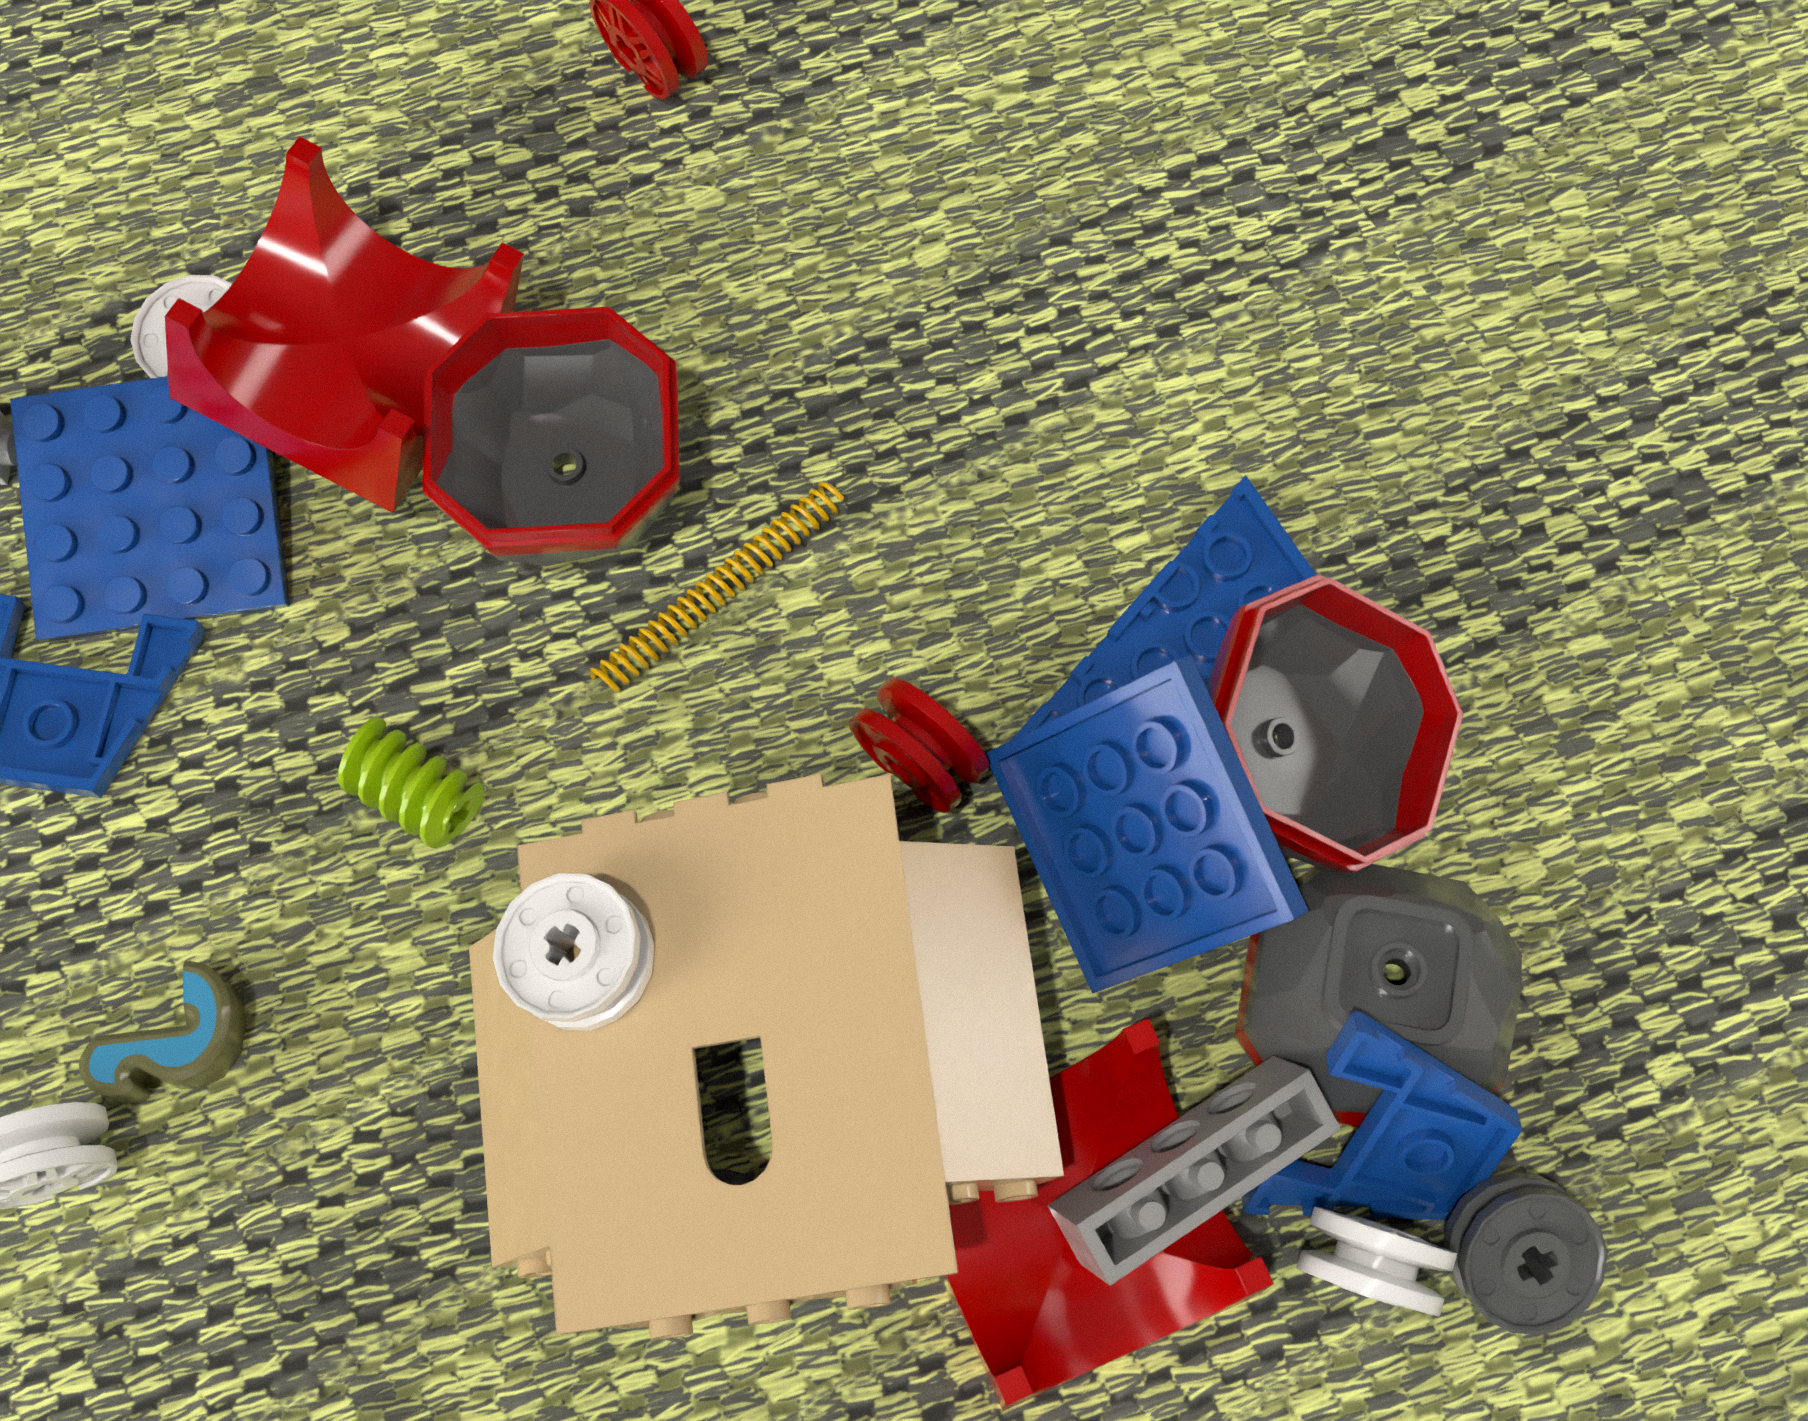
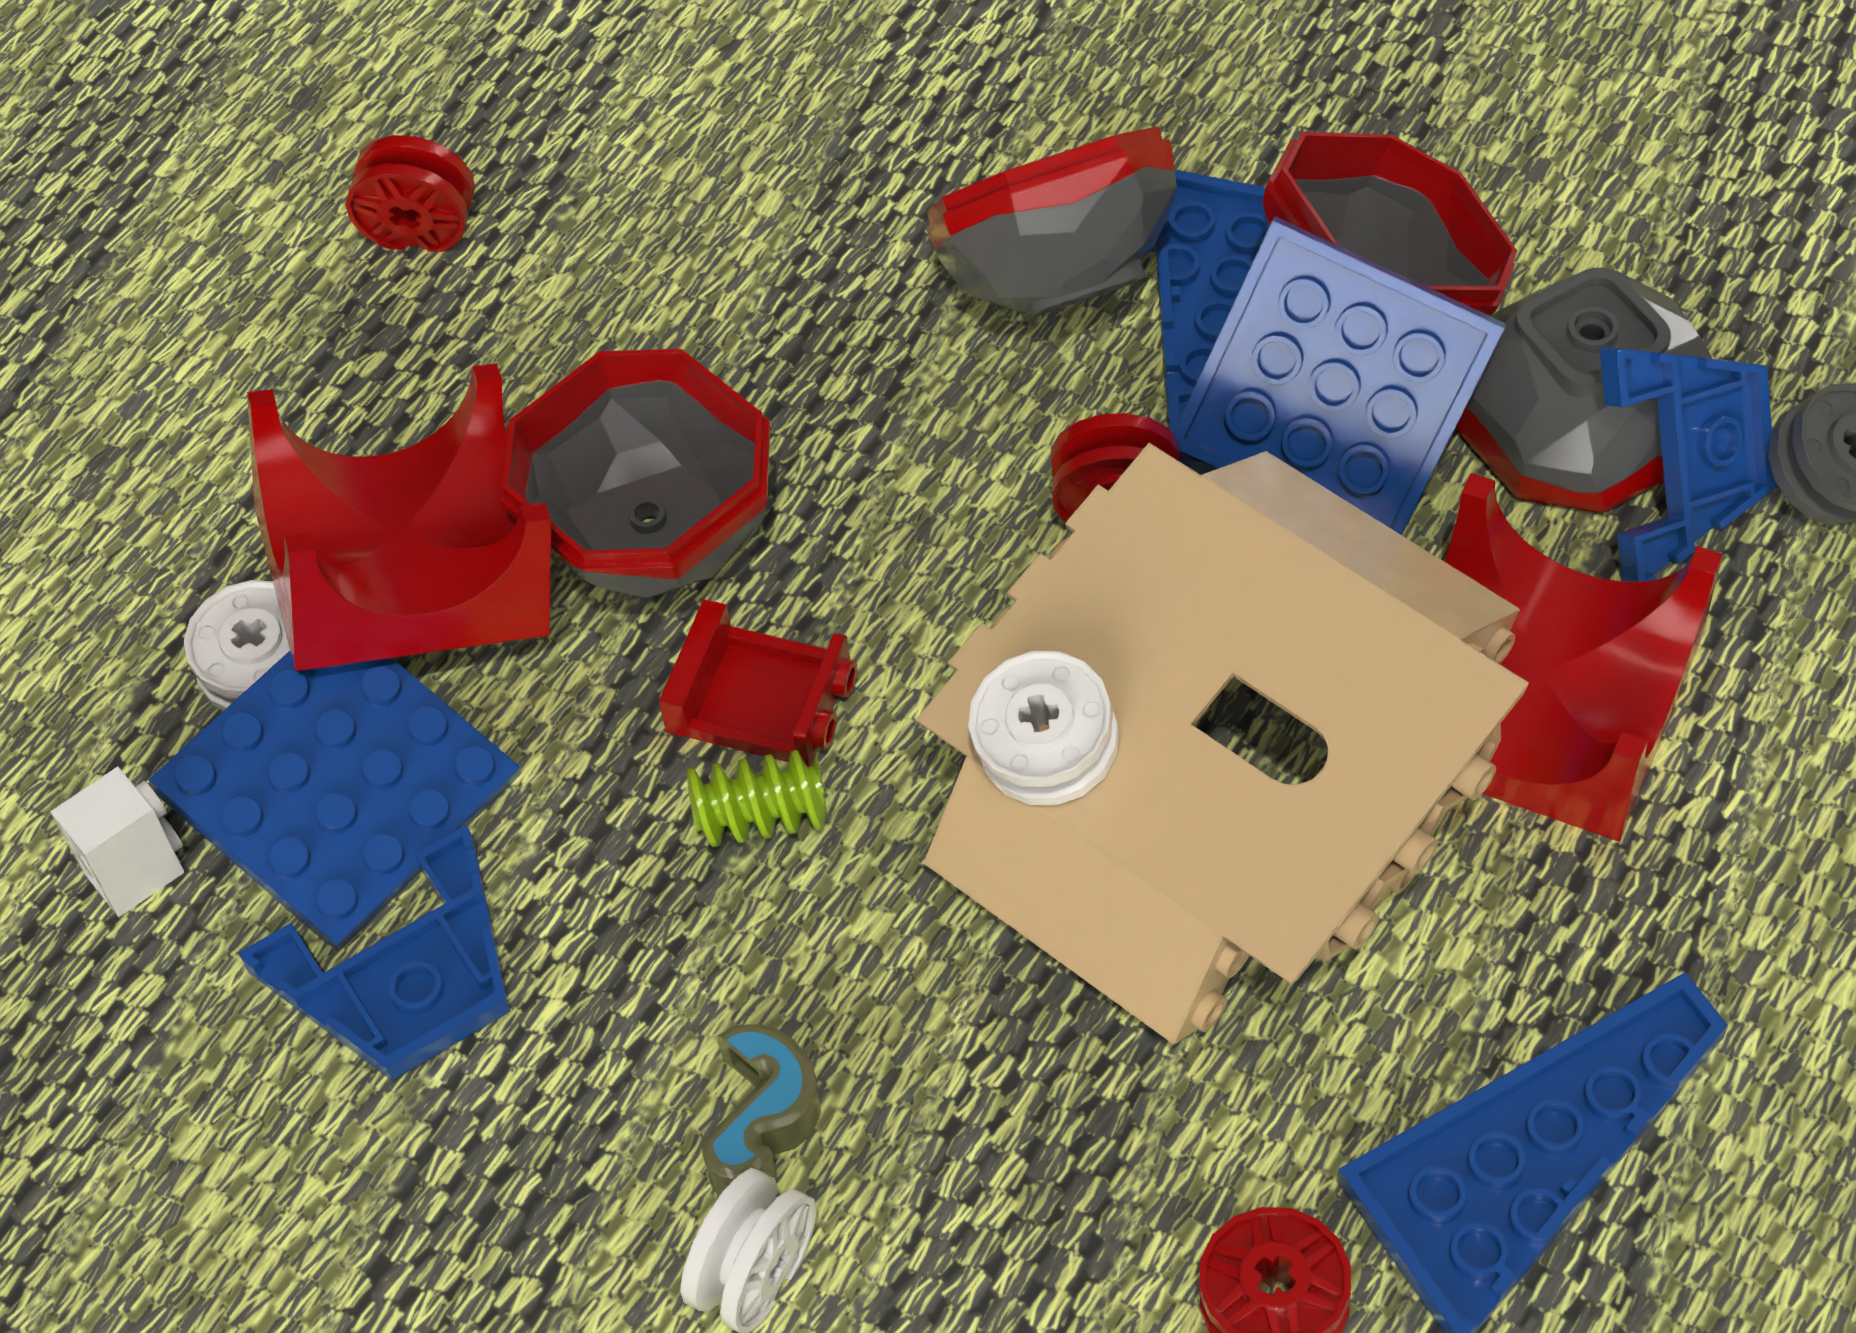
camera: 40 degrees left, 15 degrees down
(502, 685) = (755, 688): none -> red panel
(708, 586) = (842, 469): yellow piece -> none
(1083, 479) = (1058, 224): none -> dark grey rock
(1193, 1168) = (1591, 555): light grey brick -> none
(1376, 1261) = (1761, 524): white wheel -> none

